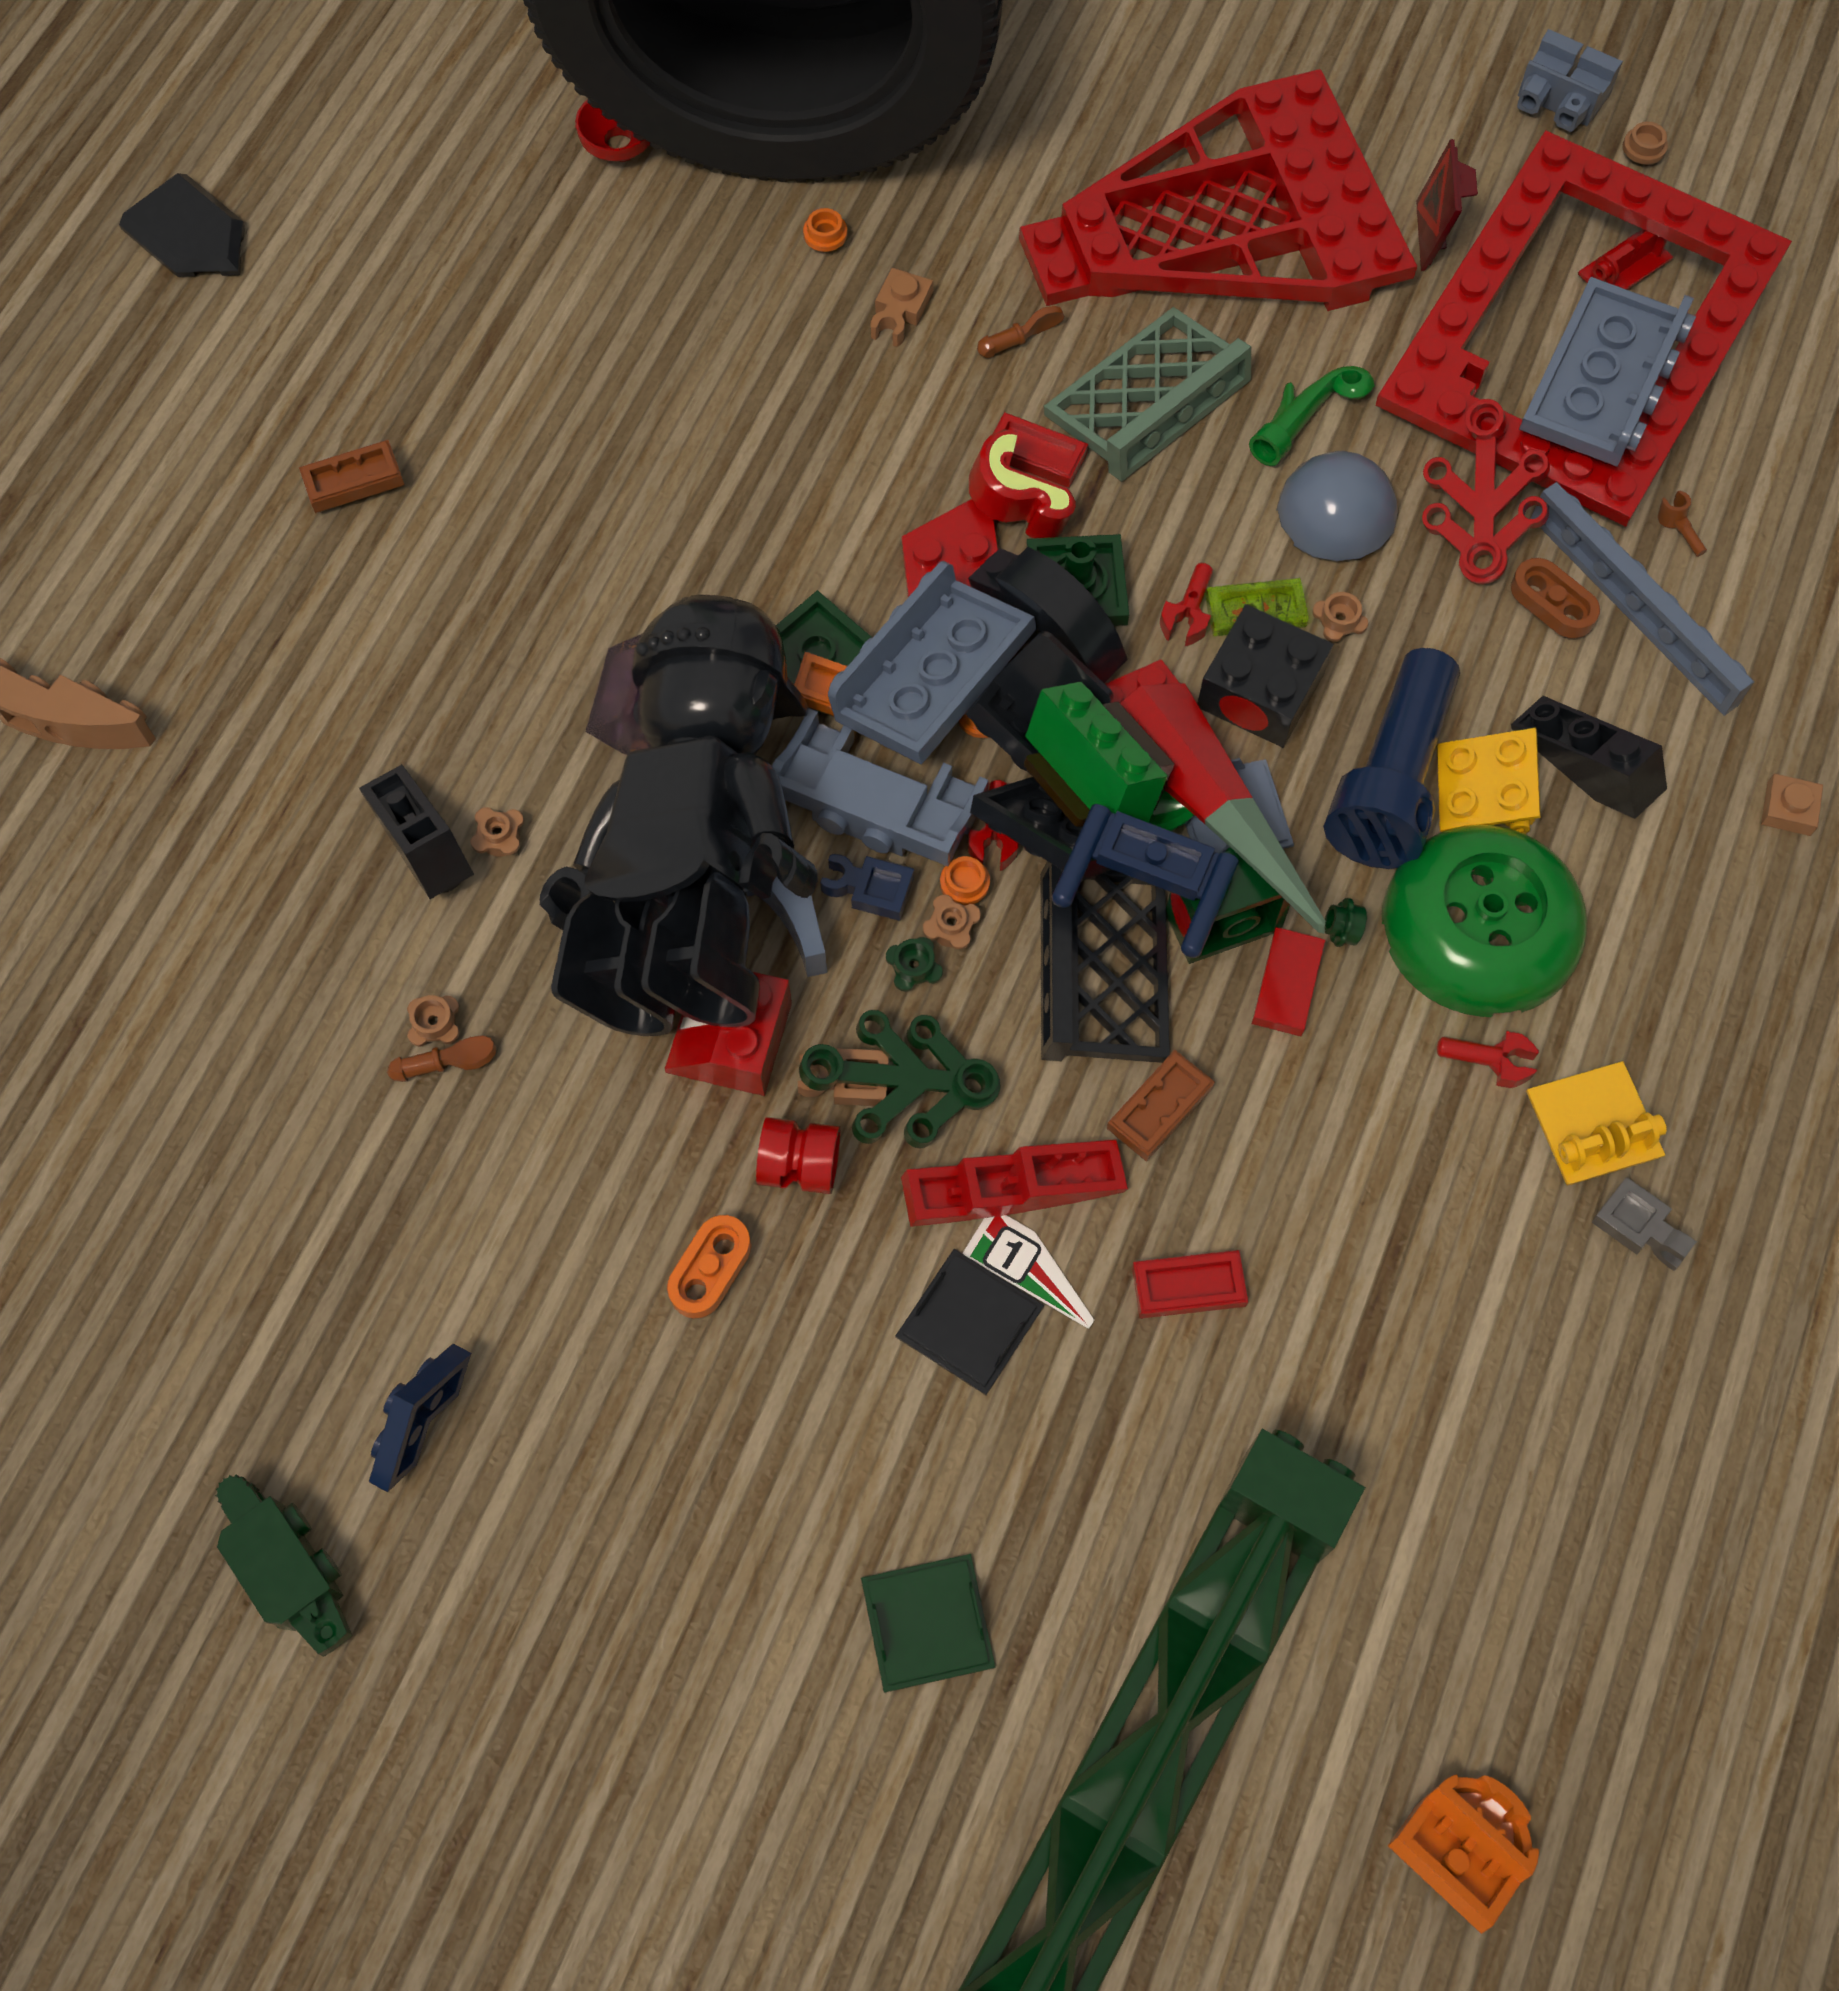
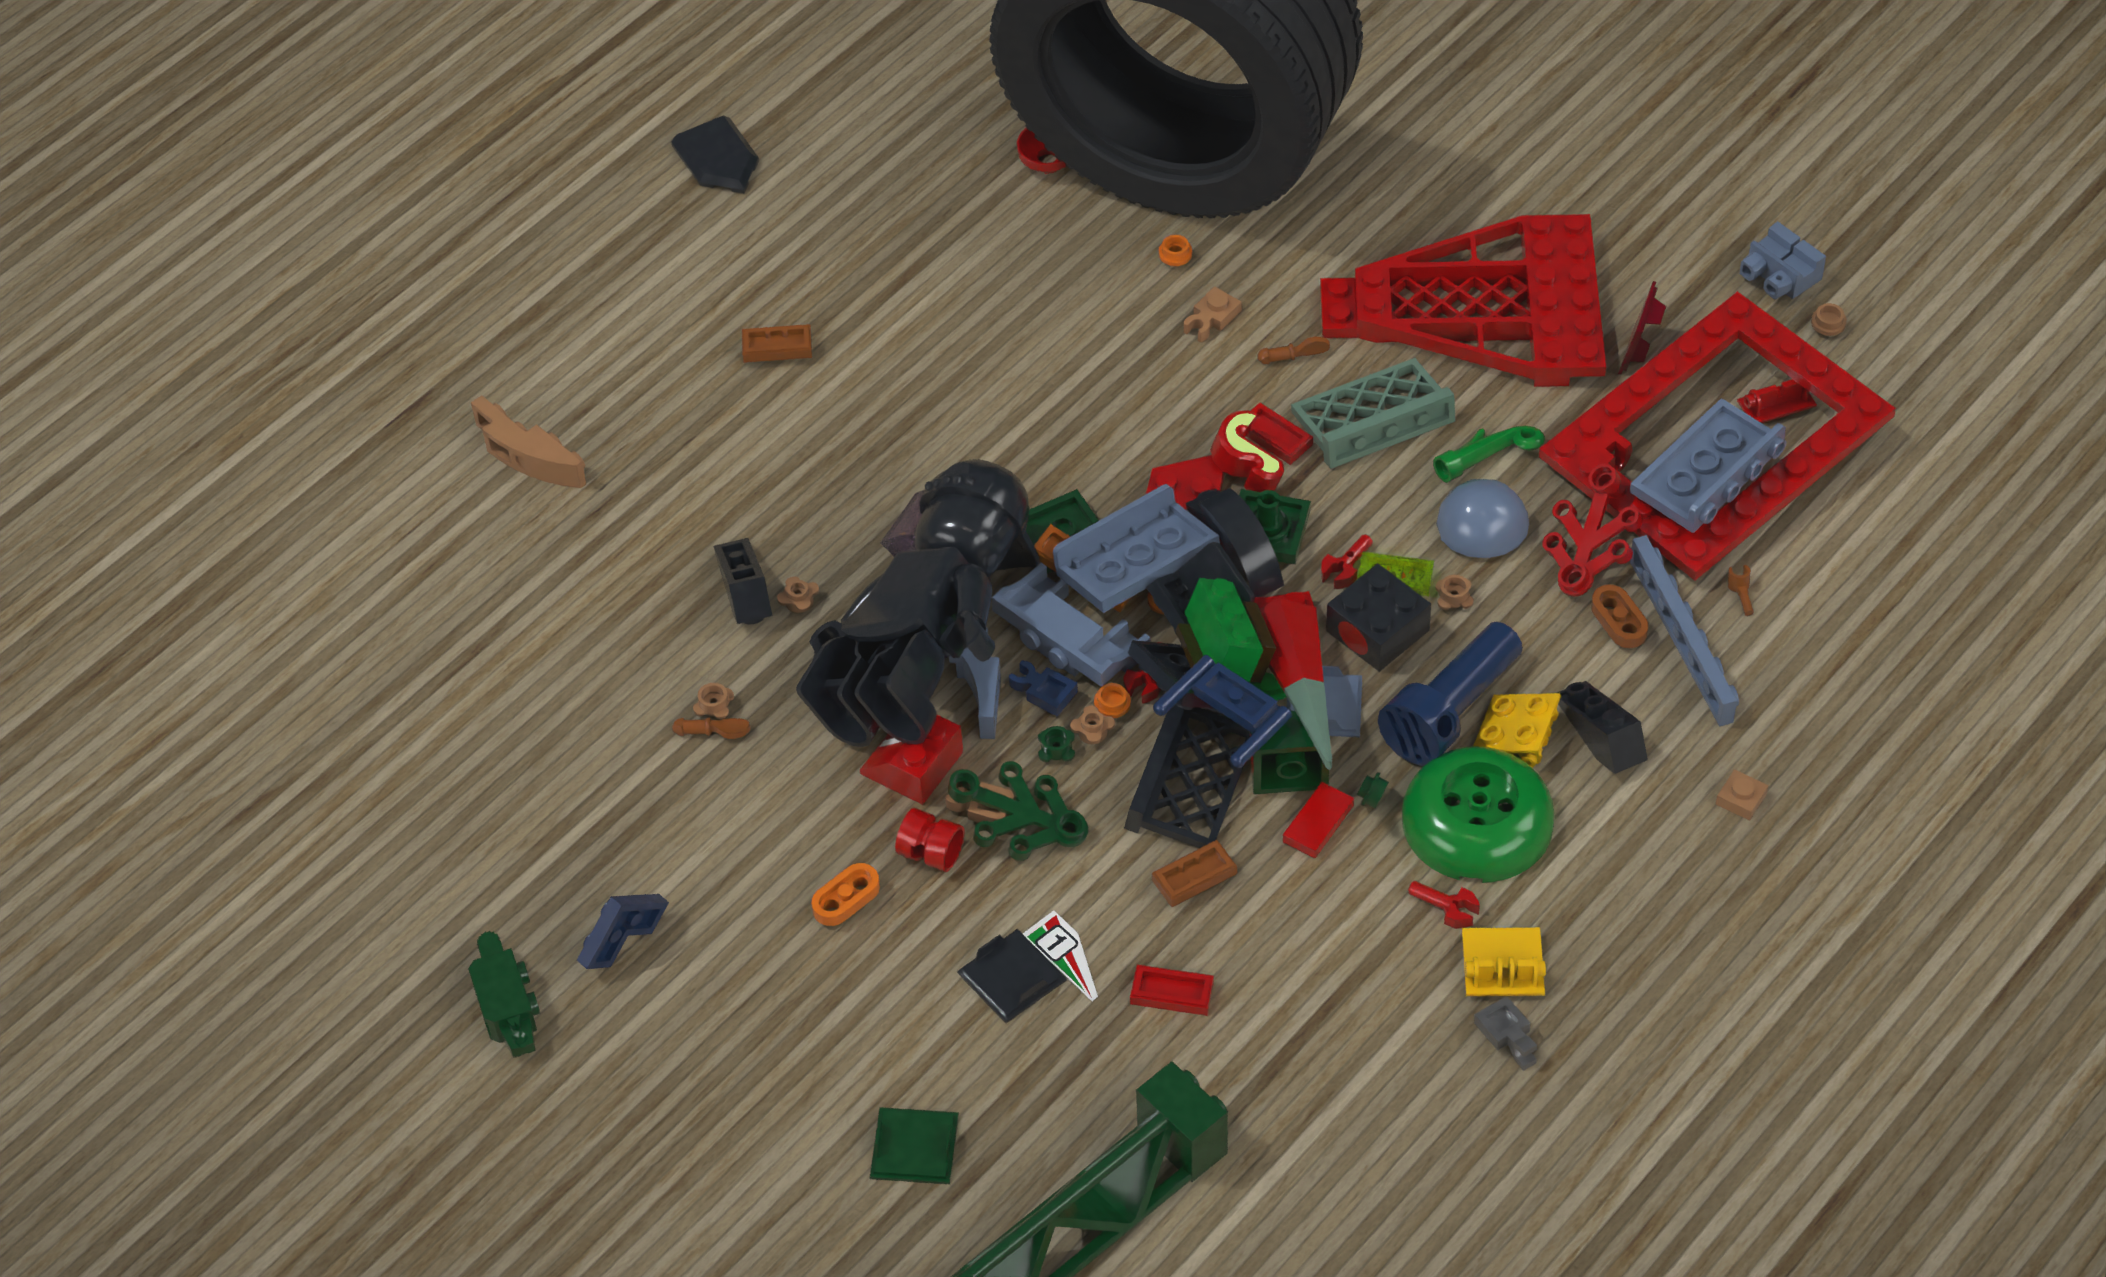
camera: 20 degrees right, 15 degrees down
(1014, 1183) = (1072, 897): red slope -> none

